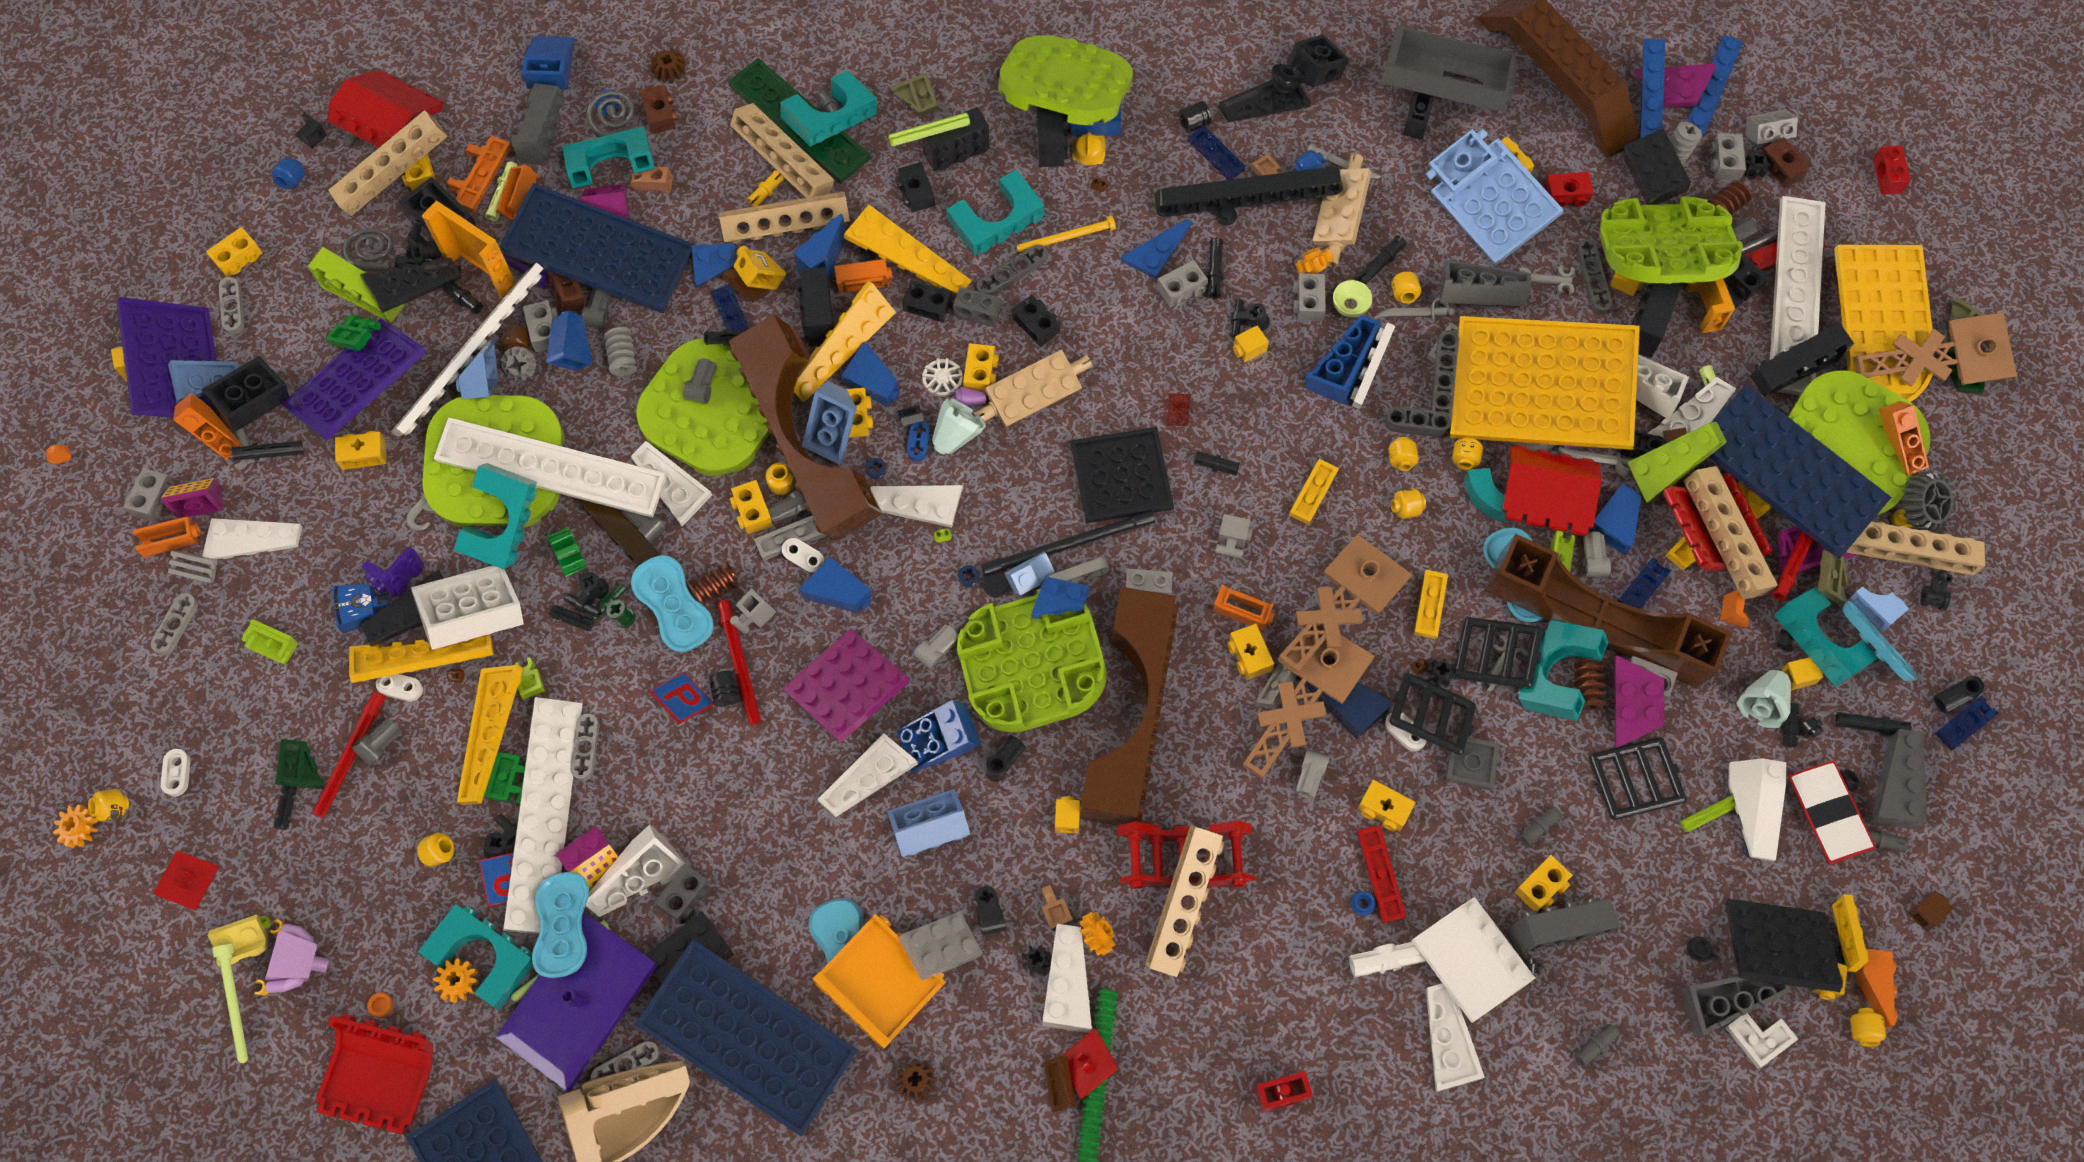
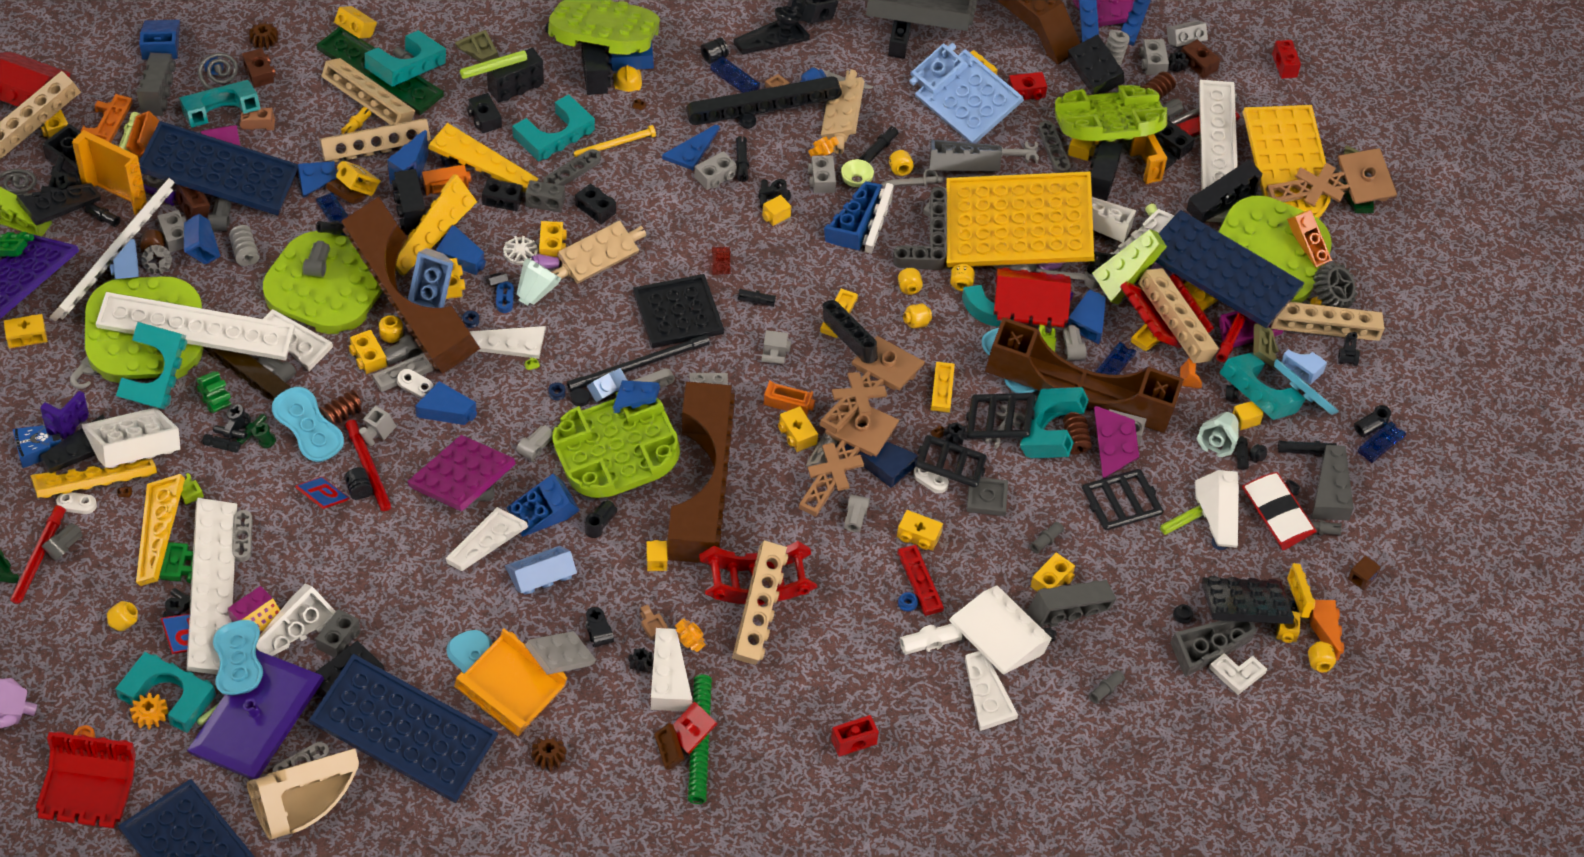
camera: 10 degrees left, 15 degrees down
(775, 54) = (355, 22): none -> yellow brick
(1325, 528) = (850, 331): none -> black beam

